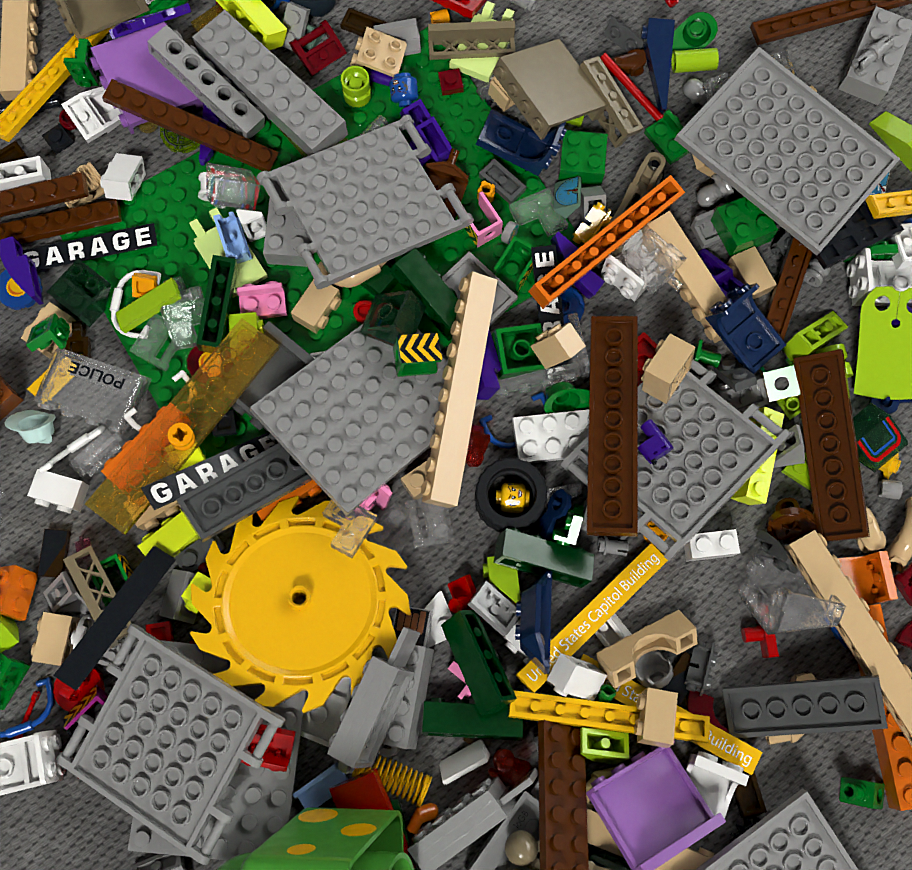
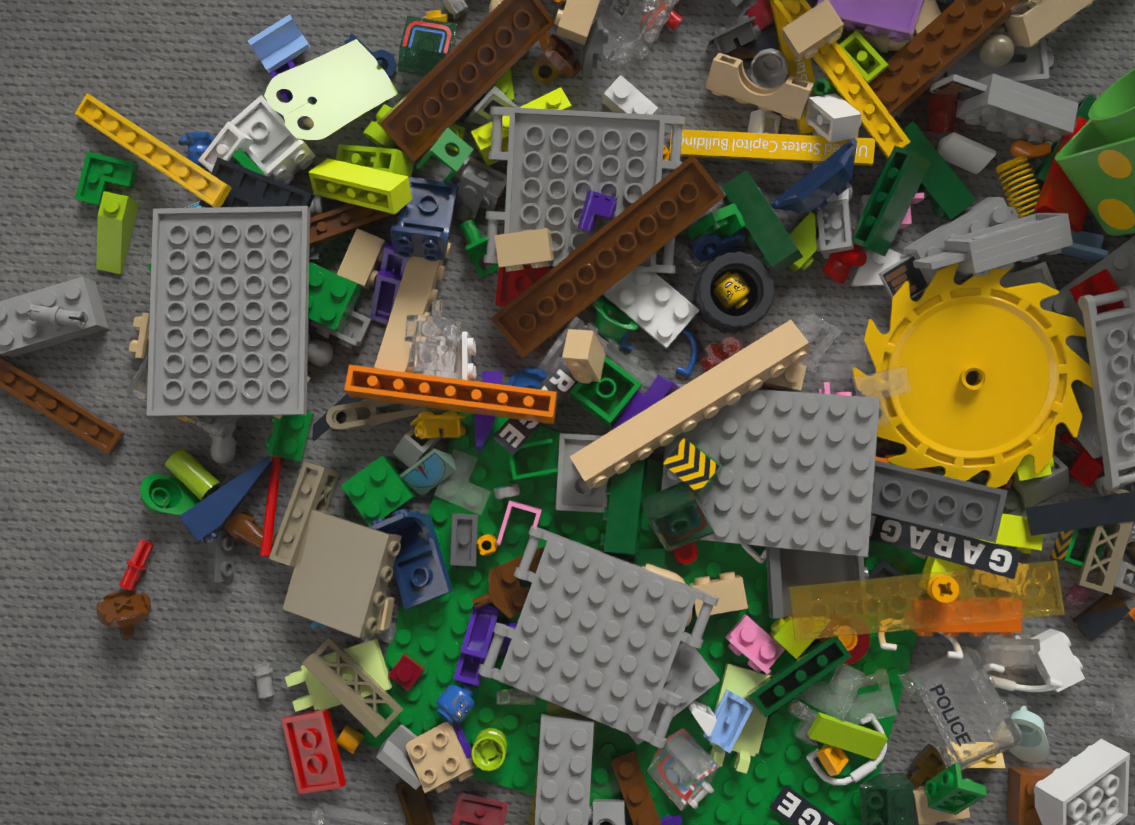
camera: 130 degrees left, 10 degrees up
(805, 307) = (361, 185): none -> neon yellow brick

